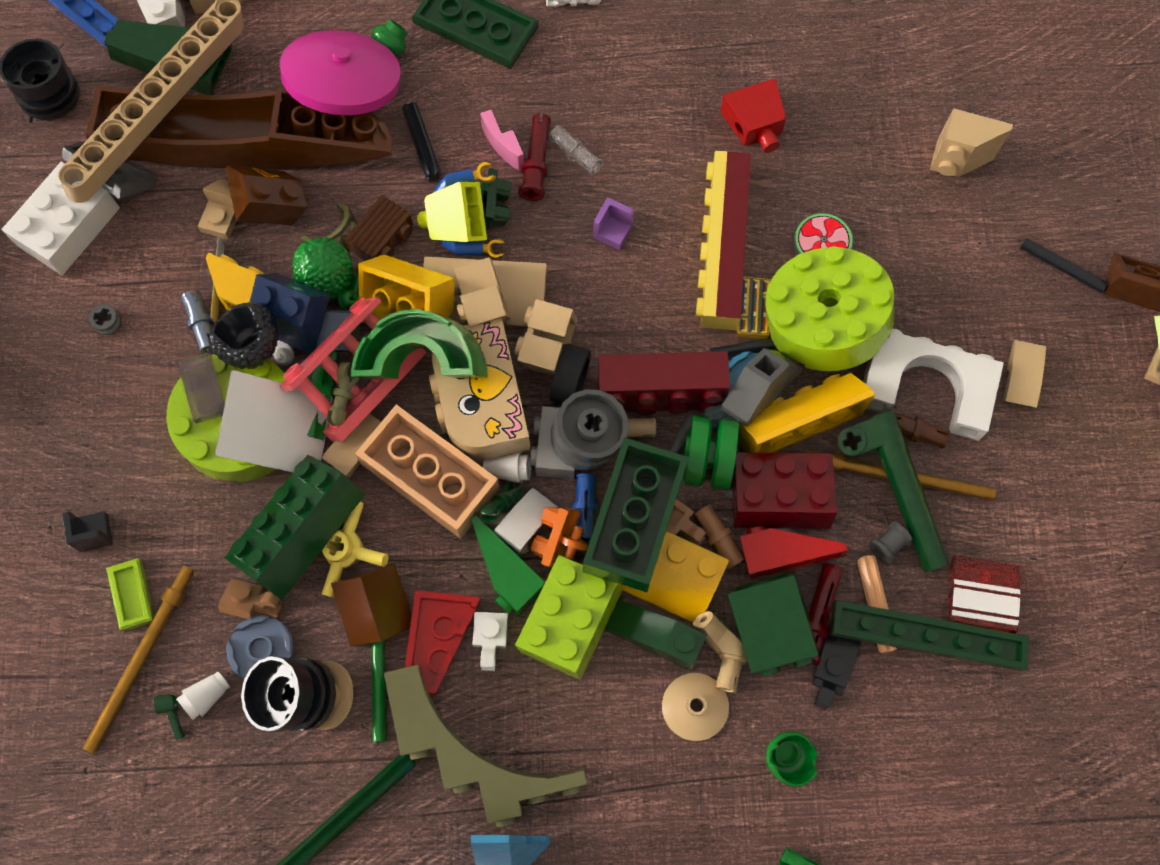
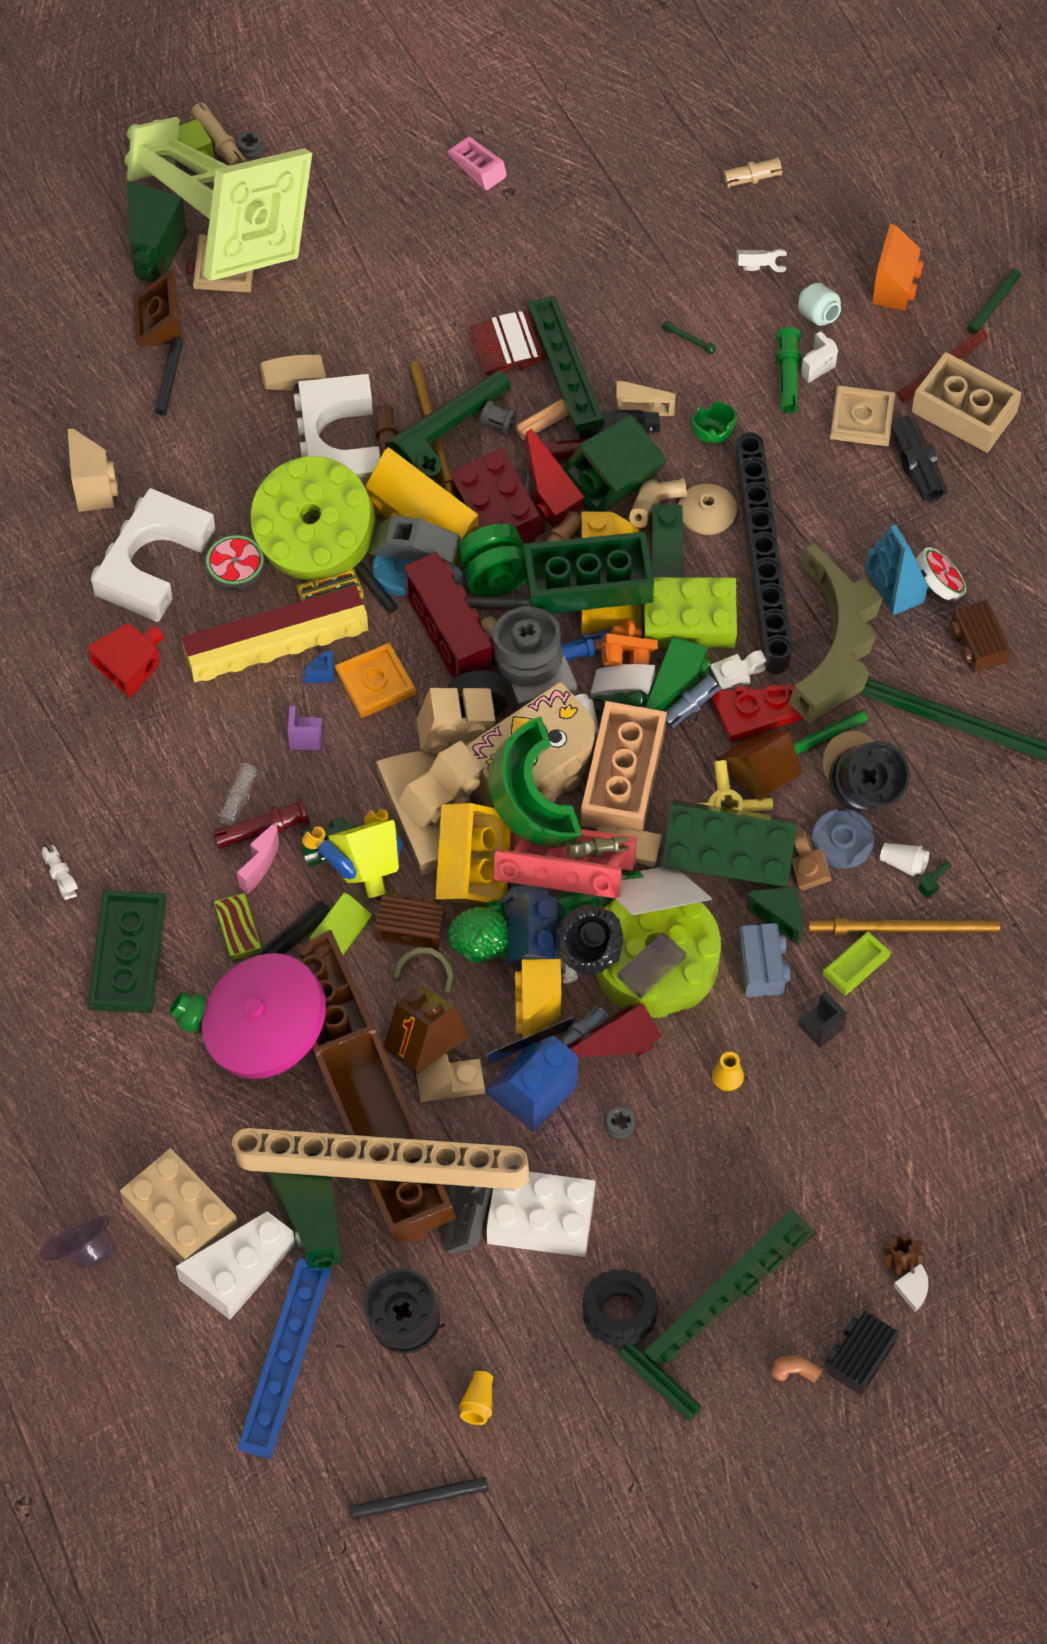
camera: 115 degrees left, 10 degrees down
(89, 423) = (728, 1072): none -> yellow cone
(168, 254) = (536, 1081): none -> blue slope
(169, 332) = (623, 1033): none -> dark red slope
(175, 506) = (762, 960): none -> sand blue brick
(212, 545) = (778, 907): none -> dark green slope
(406, 178) = (345, 920): none -> lime slope
(452, 106) = (237, 926): none -> tile
(471, 571) = (691, 701): none -> sand blue pin
(629, 732) = (767, 562): none -> black beam
(641, 308) = (375, 680): none -> light orange tile
(675, 268) = (320, 669): none -> blue tile
(848, 137) = (153, 519): none -> white arch
(858, 690) = (639, 397): none -> tan slope
(899, 811) = (668, 327): none -> dark green hinge

